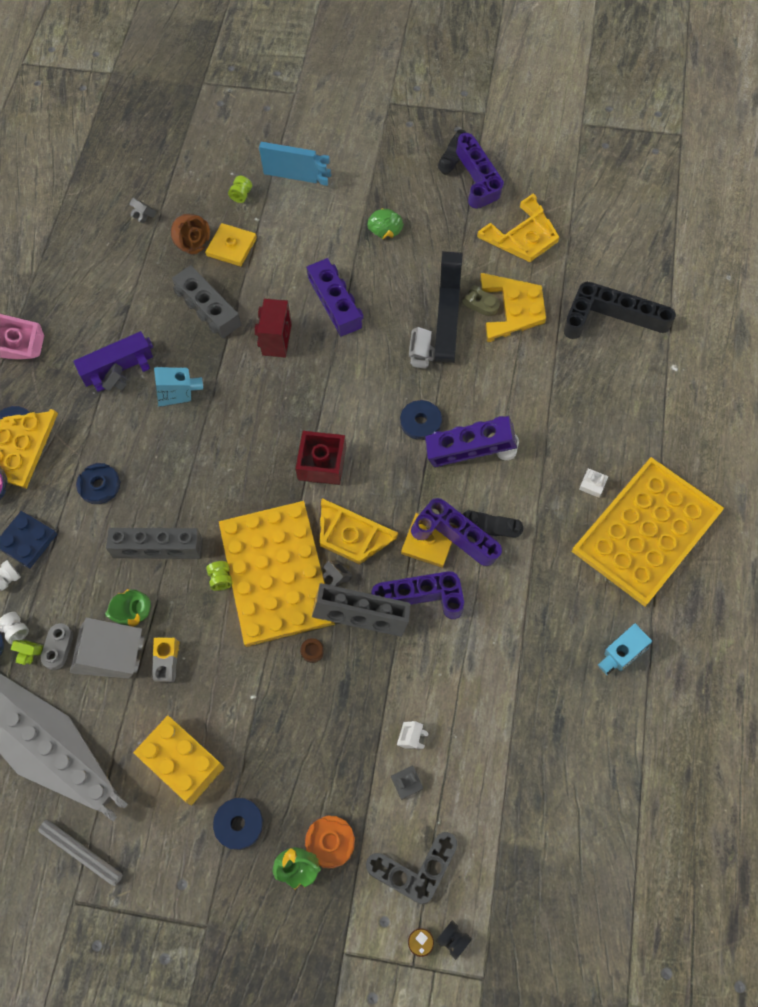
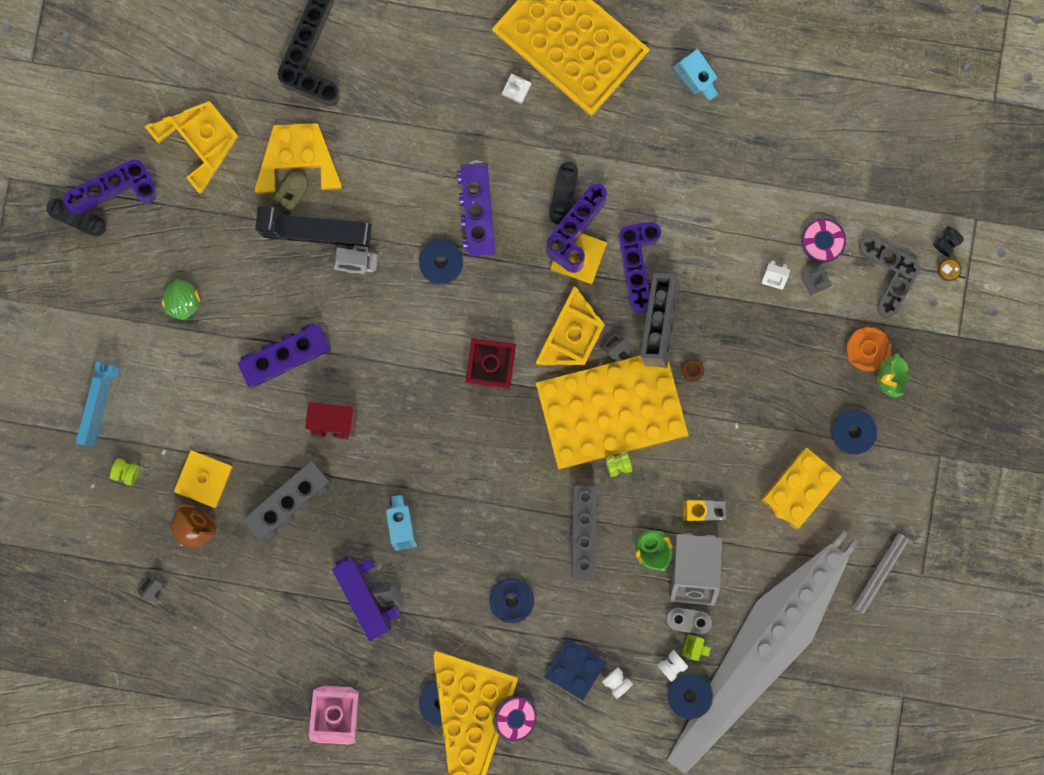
camera: 90 degrees left, 20 degrees up
(451, 791) = (823, 240): none -> tile

